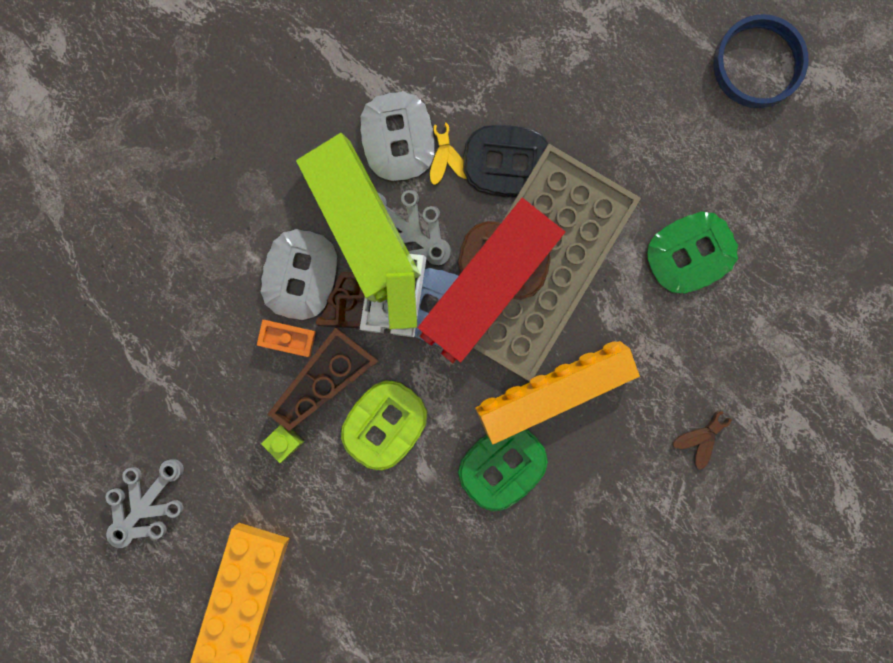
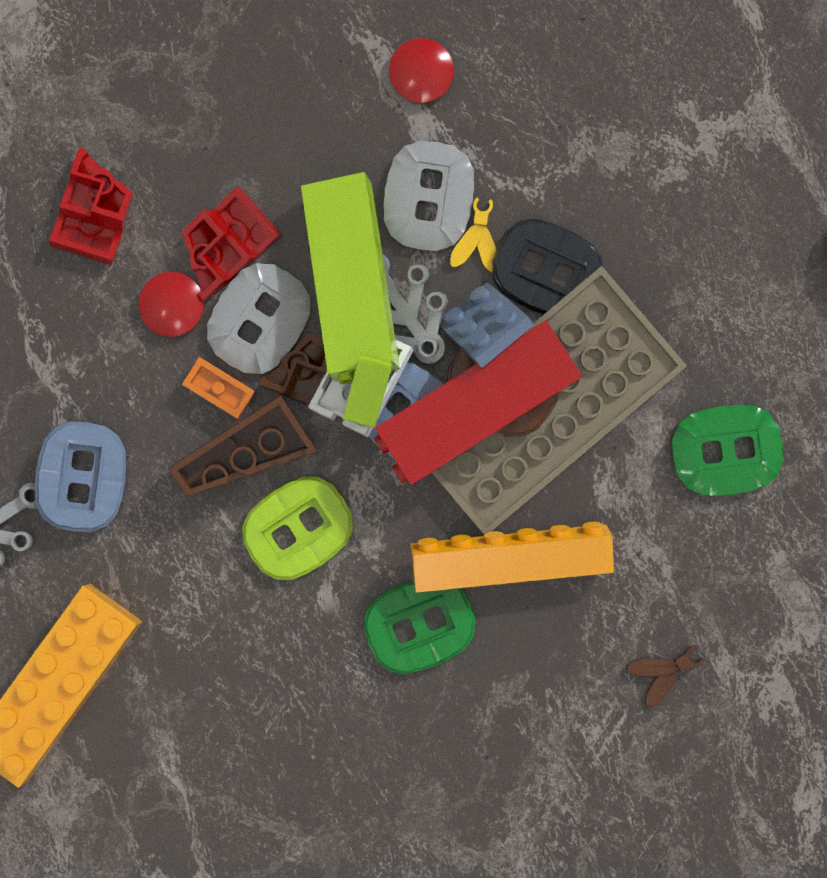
camera: 20 degrees right, 0 degrees up
(142, 236) = (91, 212): none -> red slope
(182, 447) = (55, 475): none -> sand blue piece
(227, 286) = (171, 304): none -> red dish
(254, 223) = (227, 241): none -> red slope
(282, 443) = (173, 508): lime brick -> none
(359, 42) = (421, 70): none -> red dish
(475, 218) = (485, 324): none -> sand blue plate

